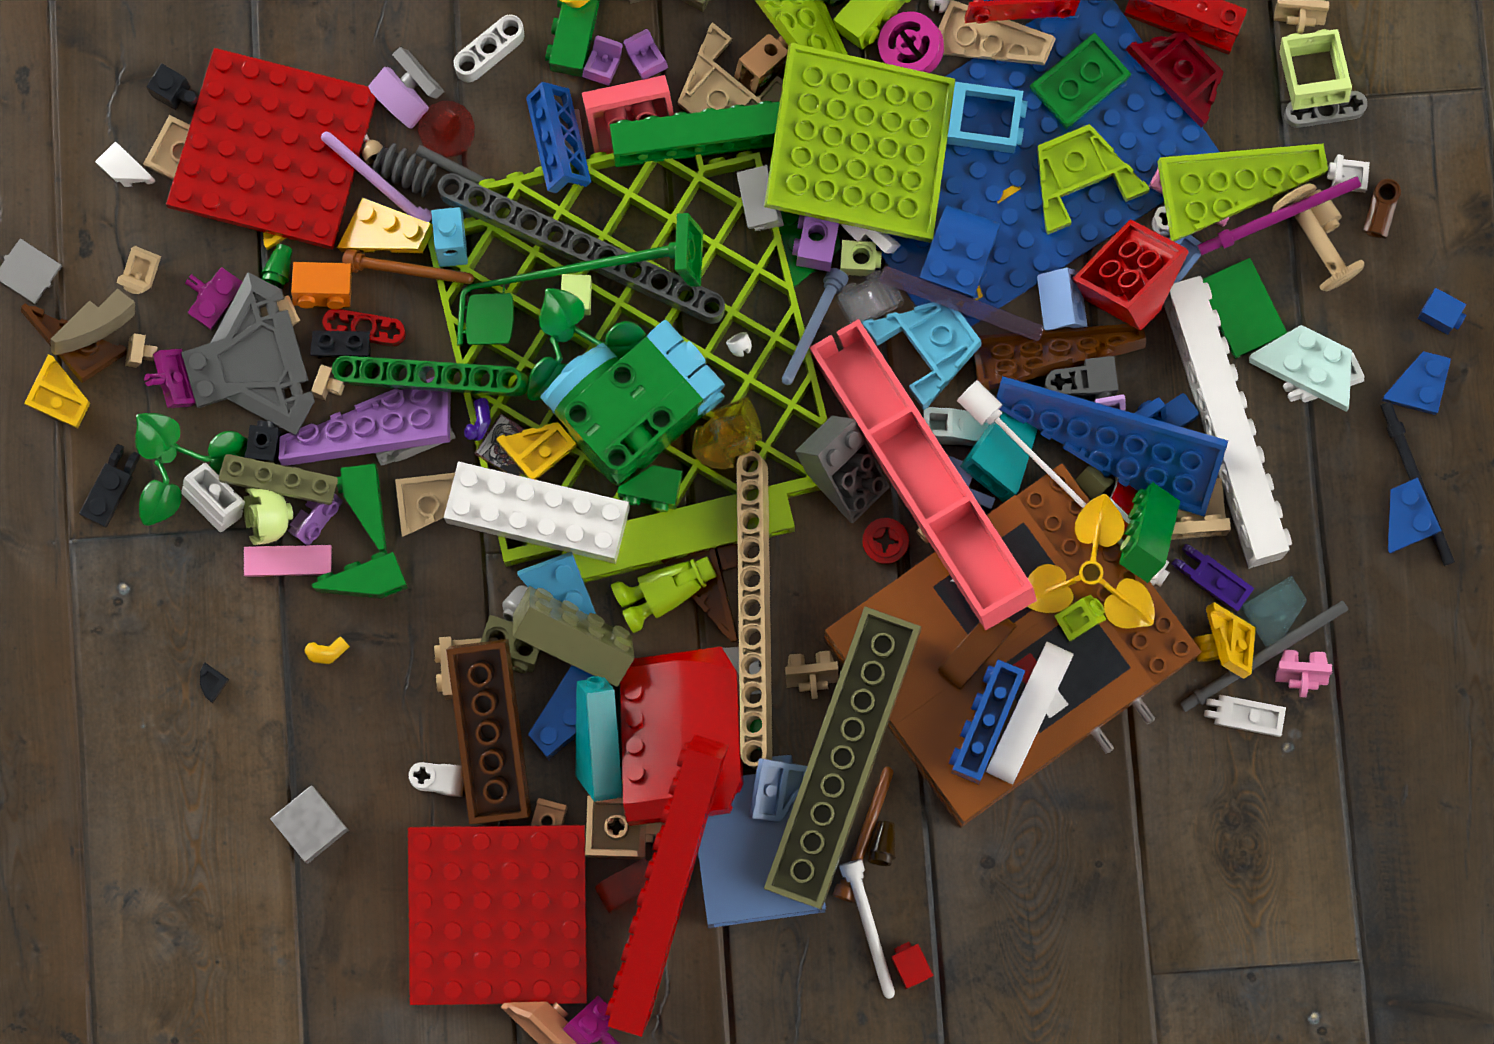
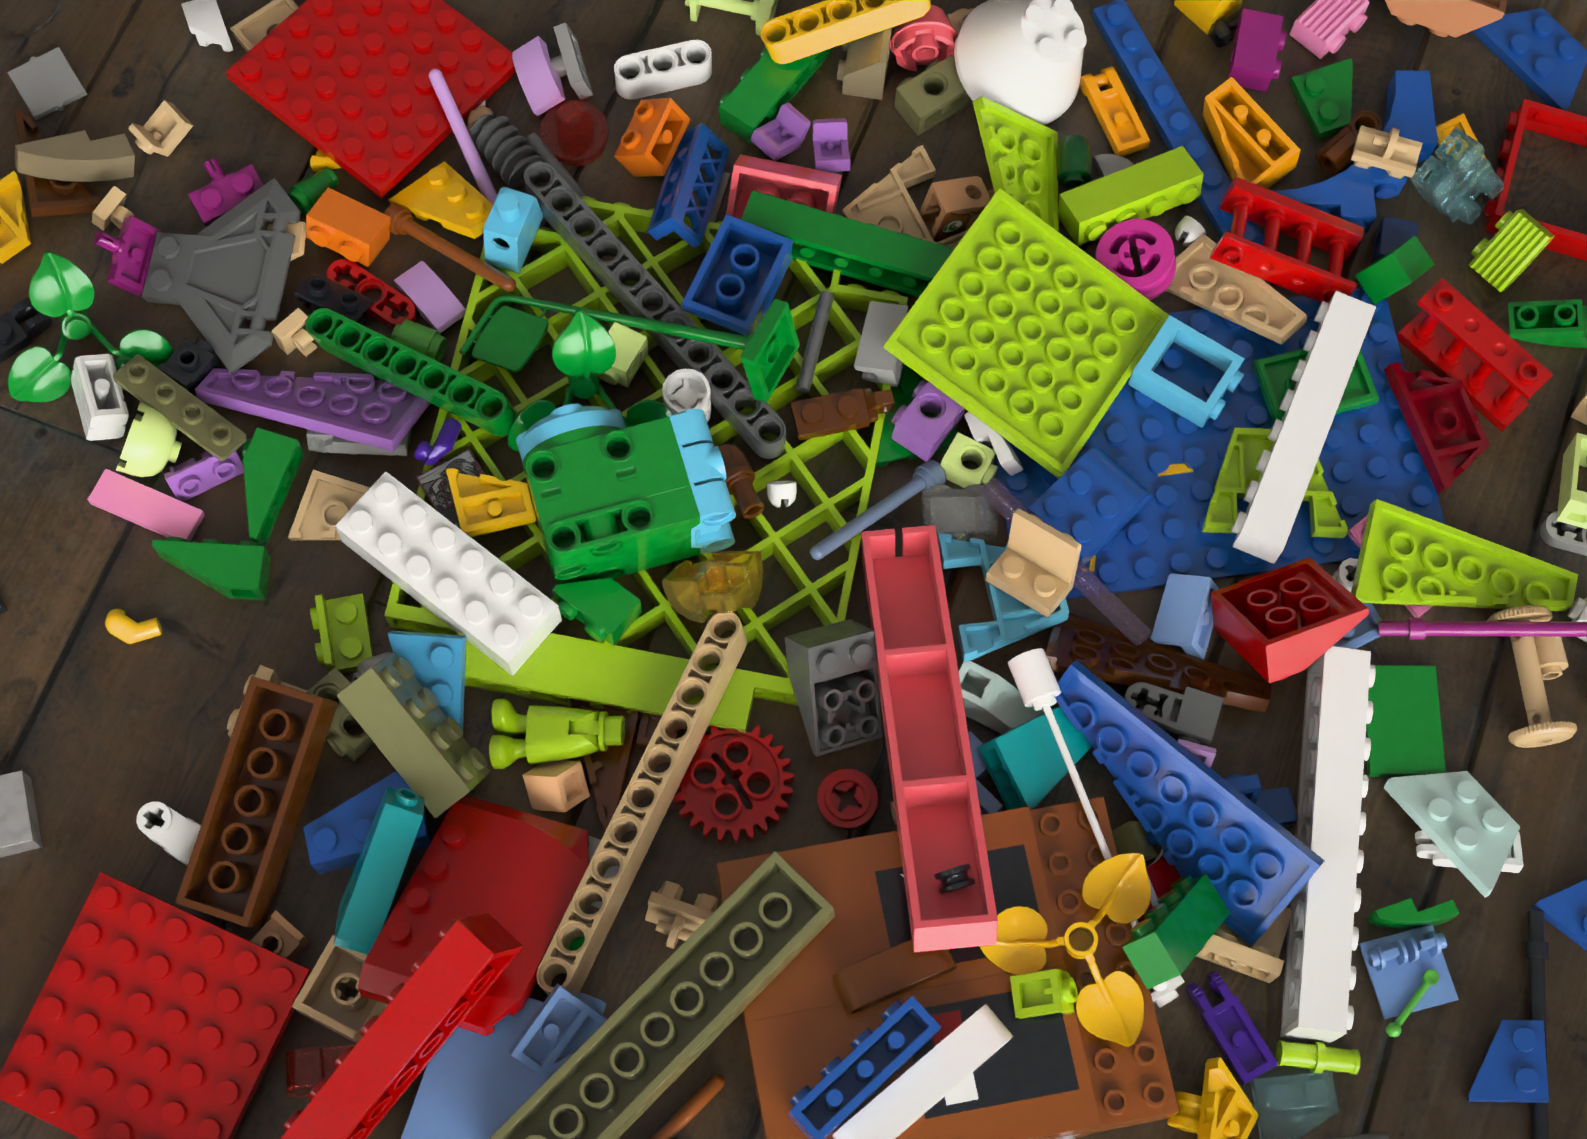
camera: 20 degrees right, 10 degrees down
(408, 309) = (430, 296): none -> lavender slope
(418, 347) = (421, 339): none -> bright green brick
(478, 585) = (343, 632): none -> lime bracket
(510, 109) = (652, 137): none -> orange brick
(633, 198) = (739, 276): none -> blue brick
(642, 307) = (687, 390): none -> white wheel
(682, 625) = (556, 785): none -> light nougat panel
(707, 348) = (740, 481): none -> reddish brown arm
(709, 219) = (814, 342): none -> flat silver bar
(751, 265) = (839, 412): none -> reddish brown hinge
(815, 544) = (761, 763): none -> red gear
(943, 318) = (1037, 564): none -> tan bracket
(991, 570) = (954, 879): none -> black bush
(1086, 124) = (1303, 428): none -> white brick
(1278, 571) = (1317, 1057): none -> lime pin
(1298, 447) = (1405, 915): none -> green slope
(1316, 483) = (1398, 966): none -> medium blue hinge
(1331, 482) = (1429, 978): none -> bright green hinge

